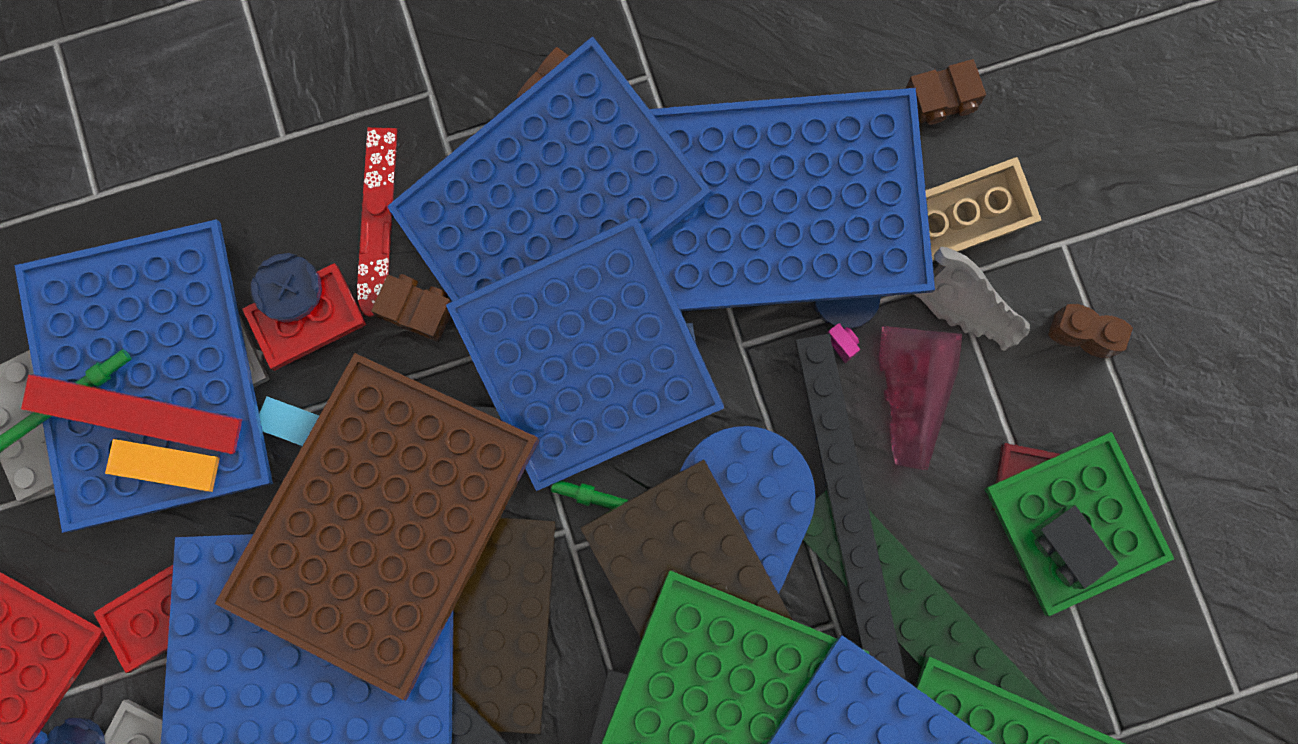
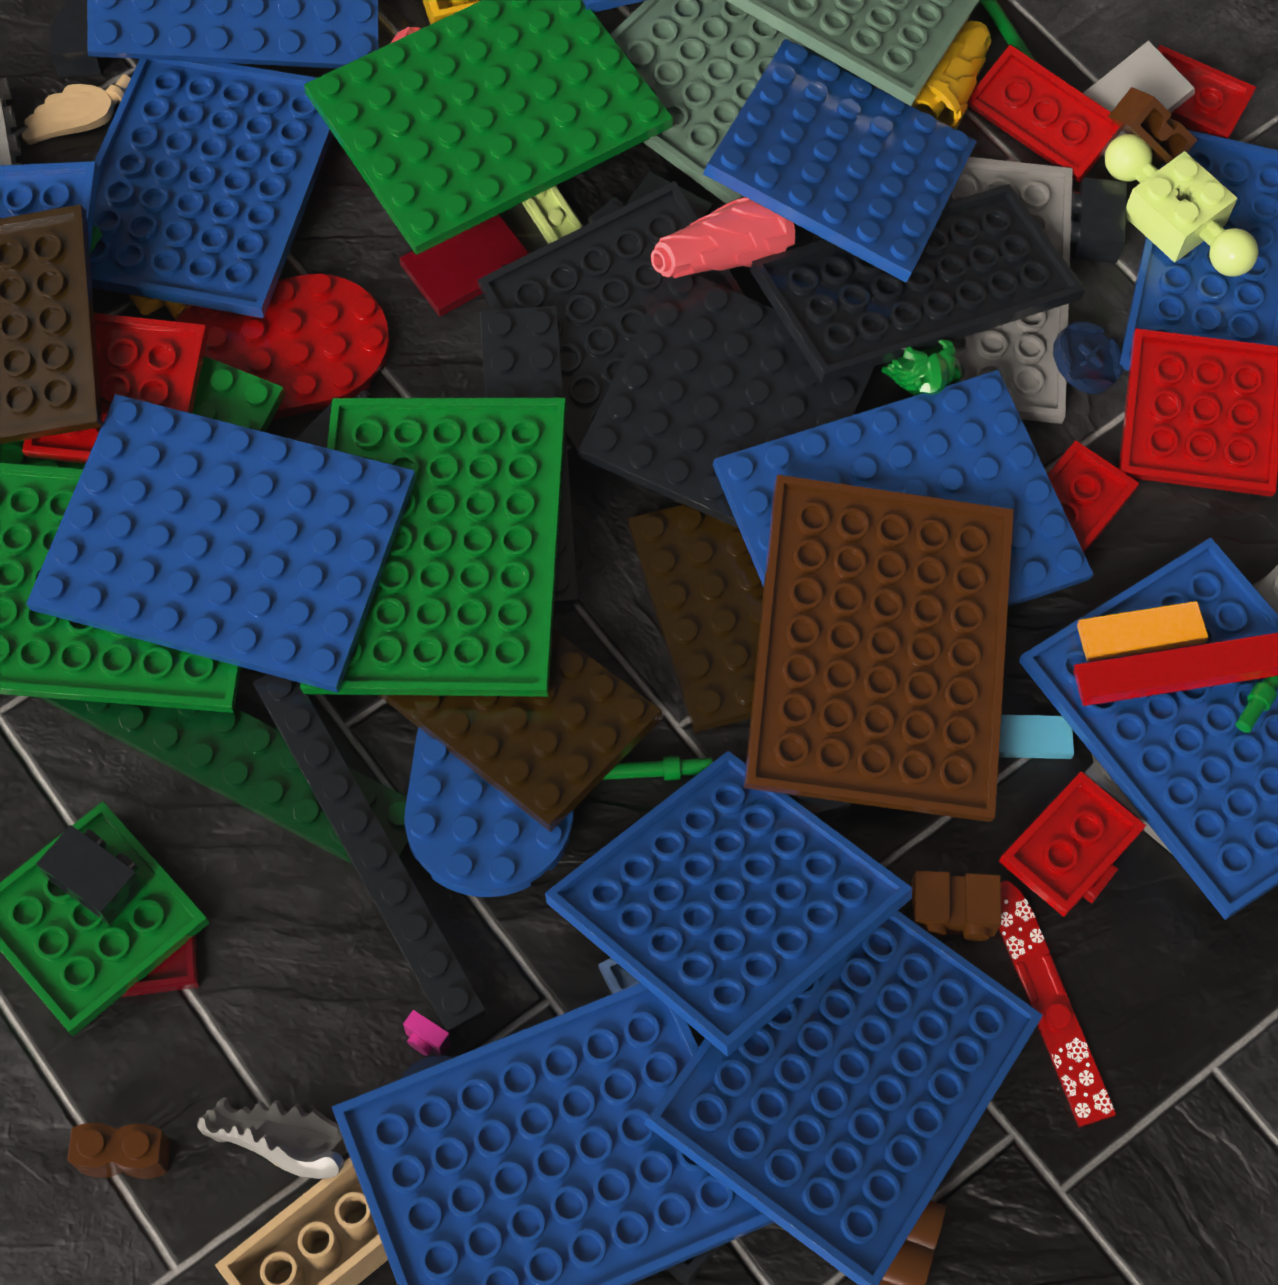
camera: 155 degrees right, 15 degrees down
(286, 287) = (1107, 862): dark blue tile -> none
(919, 381) = (318, 1025): clear pink wedge -> none

